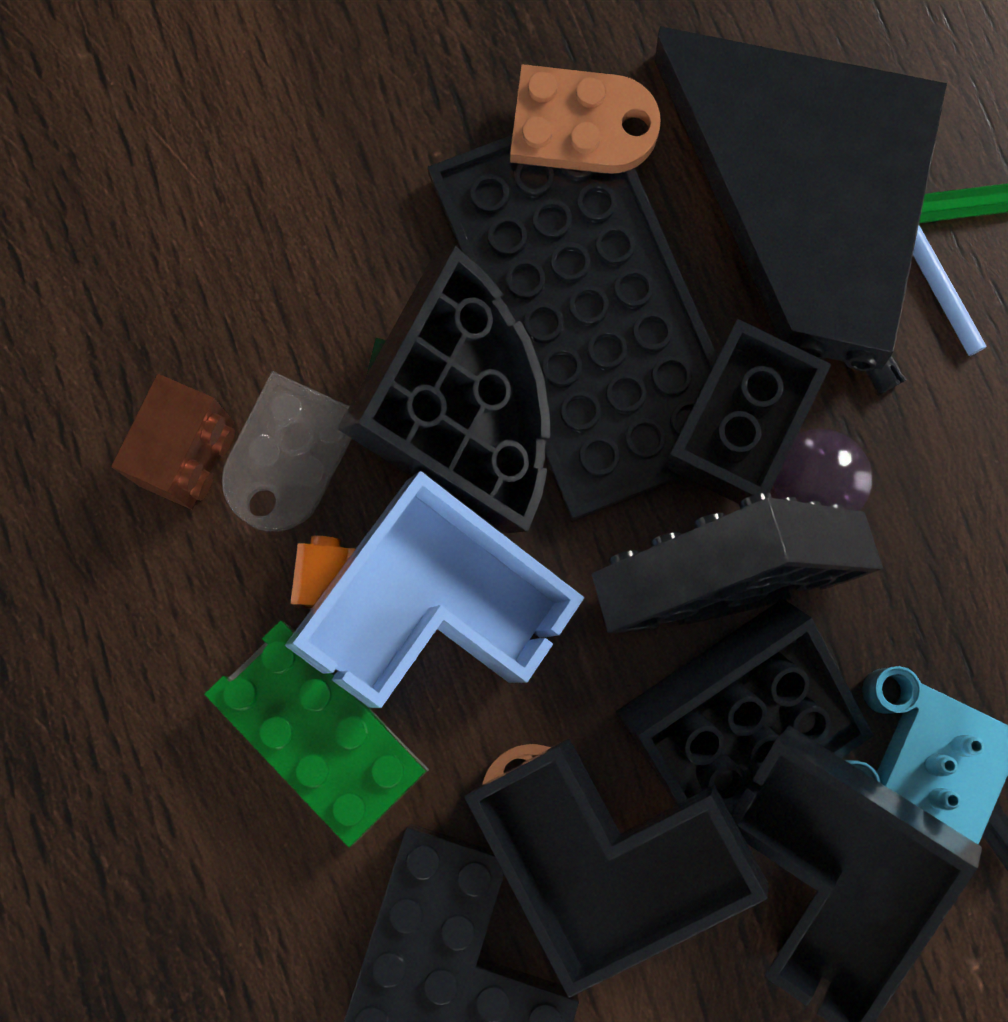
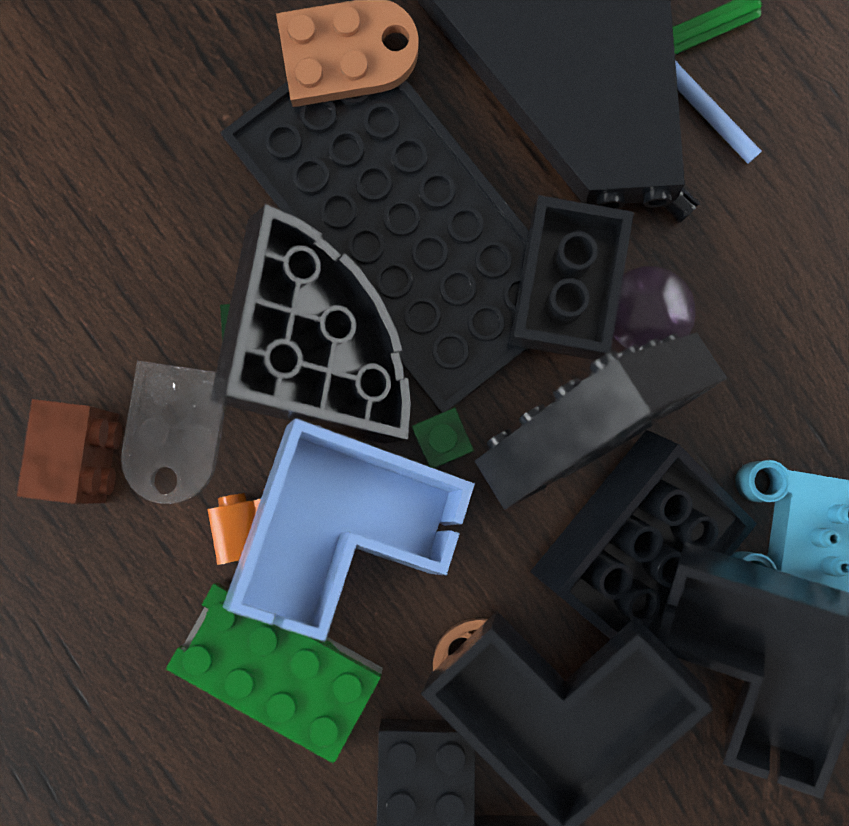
camera: 15 degrees left, 5 degrees up
(564, 543) = (442, 439): none -> dark green brick

